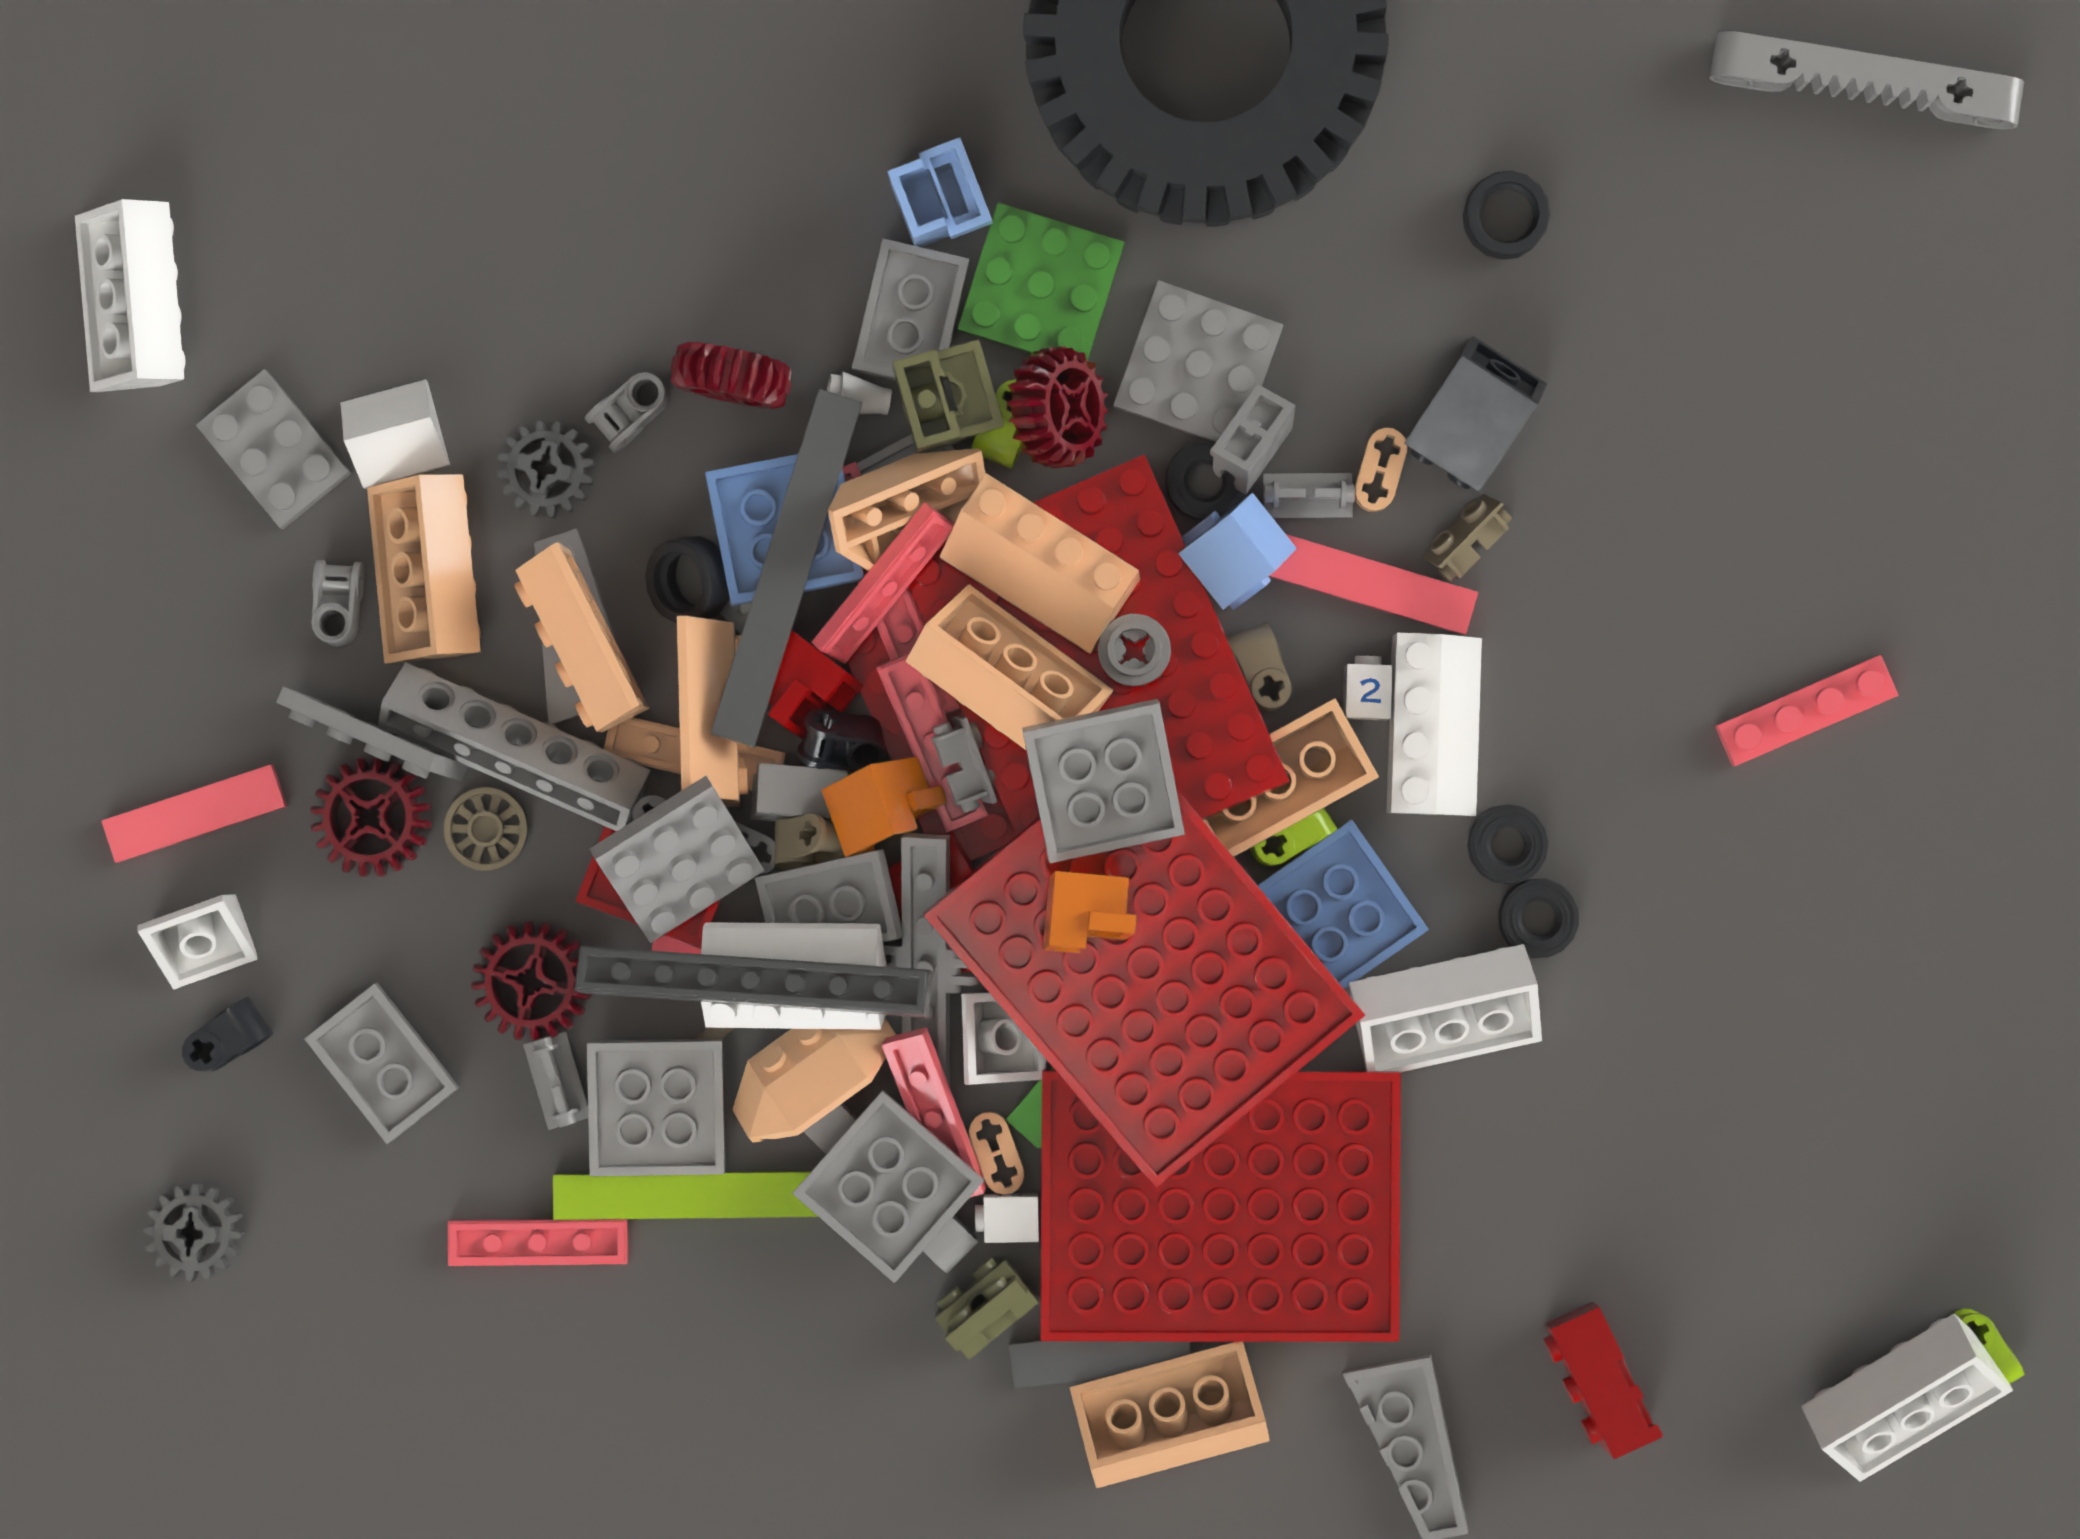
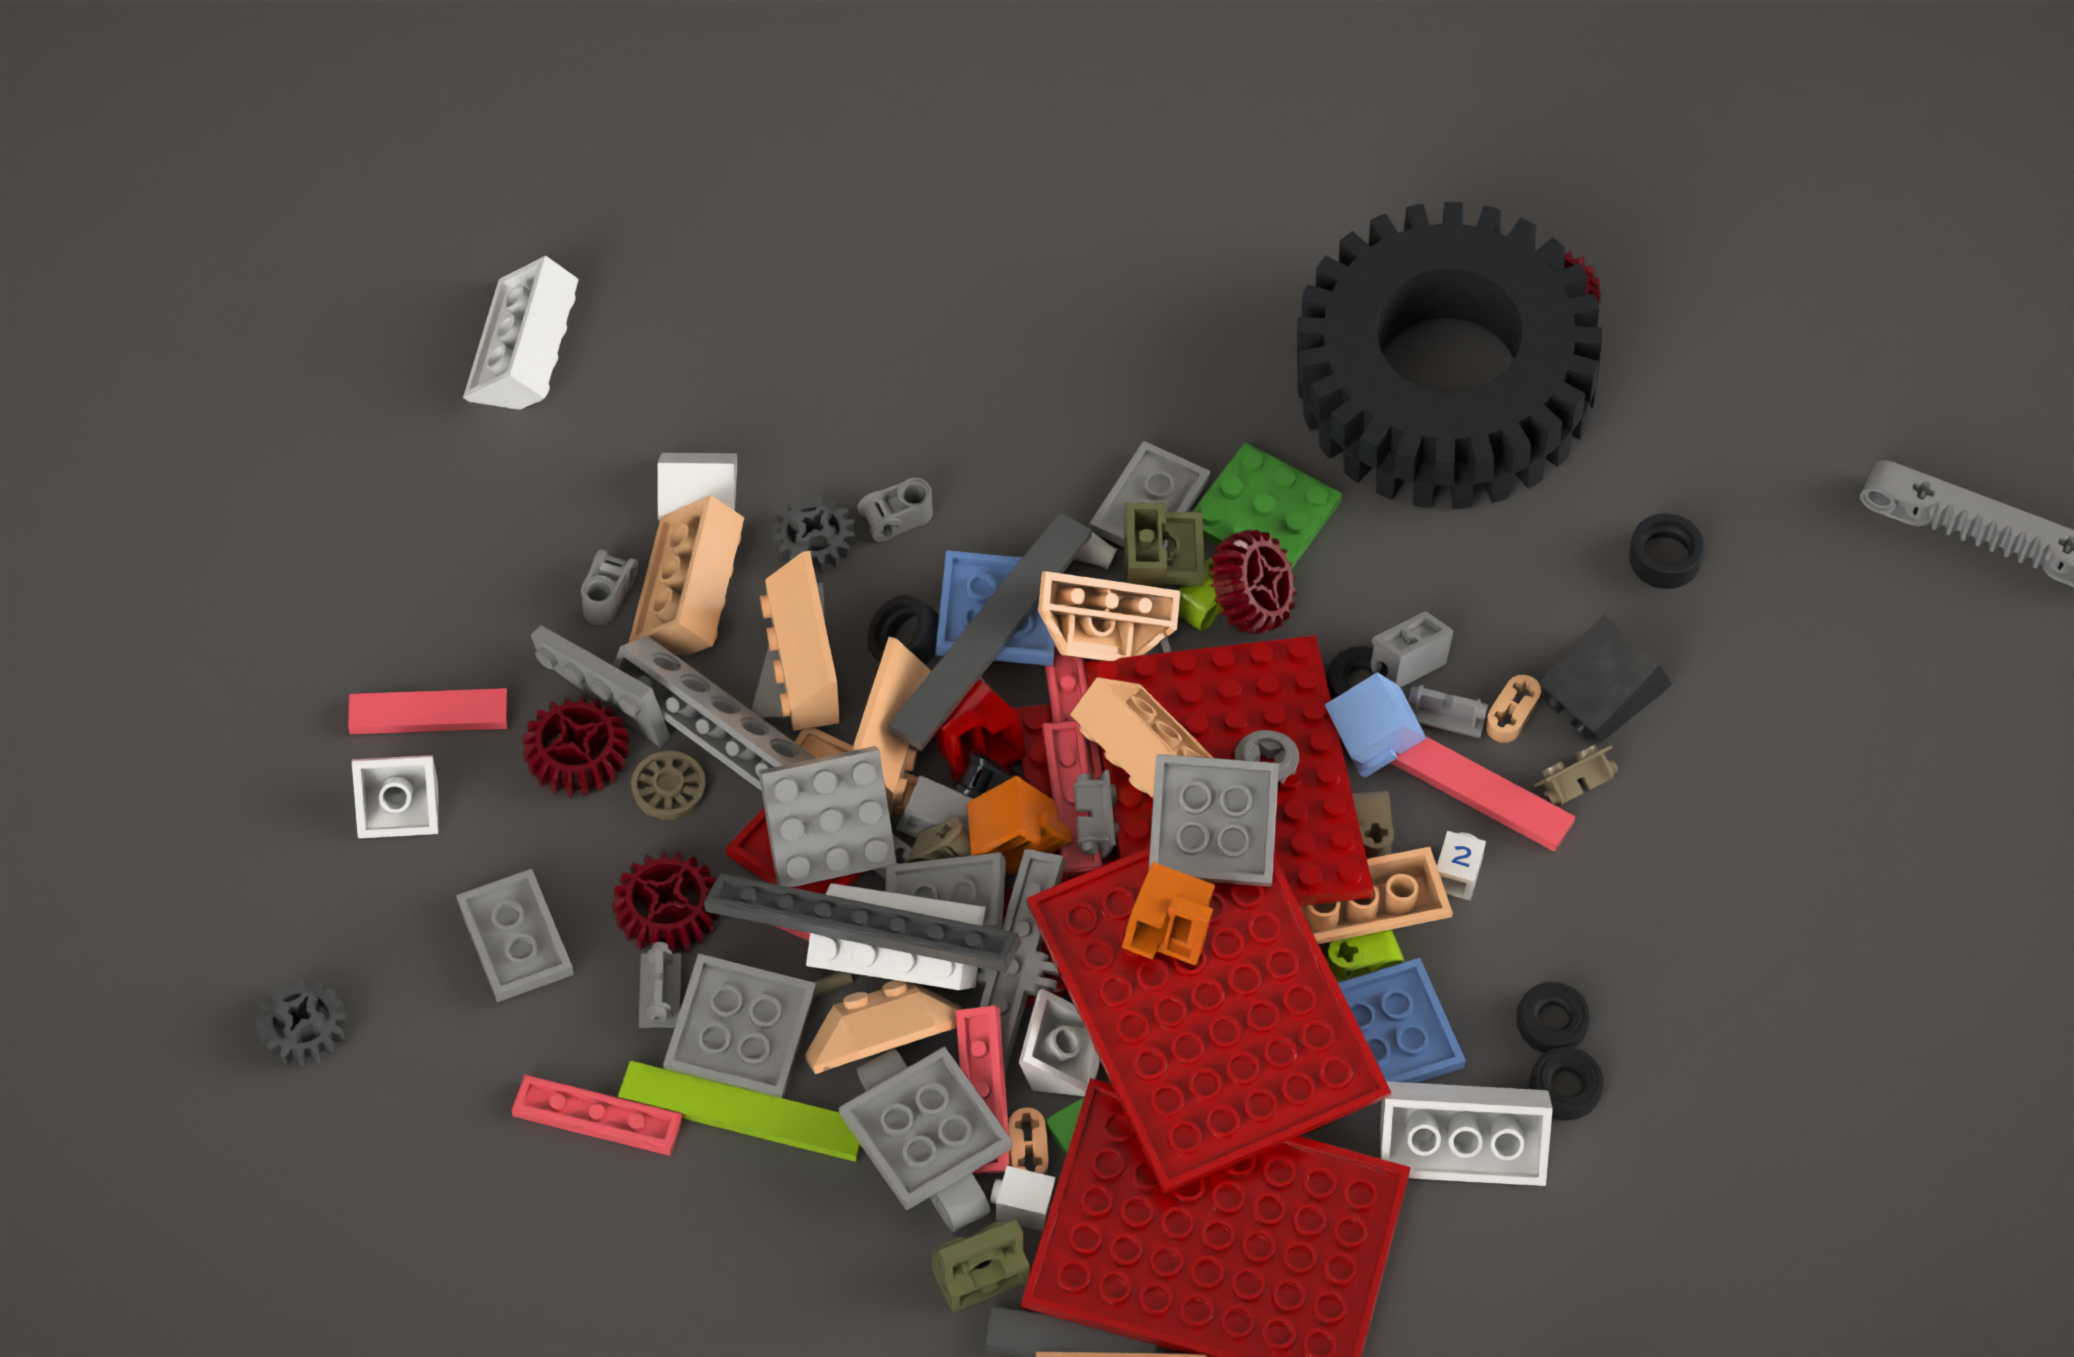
camera: 15 degrees right, 30 degrees down
(232, 1033) = (390, 878): black piece -> none
(273, 449) = (595, 471): light grey plate -> none
(731, 375) = (989, 497): dark red gear -> none
(884, 583) = (1071, 662): coral tile -> none
(939, 194) = (1198, 419): light blue plate -> none
(1039, 563) = (1205, 675): light nougat slope -> none
(1195, 362) = (1375, 589): light grey plate -> none
(1434, 724) = (1511, 906): white slope -> none
(1806, 710) = (1844, 981): coral plate -> none

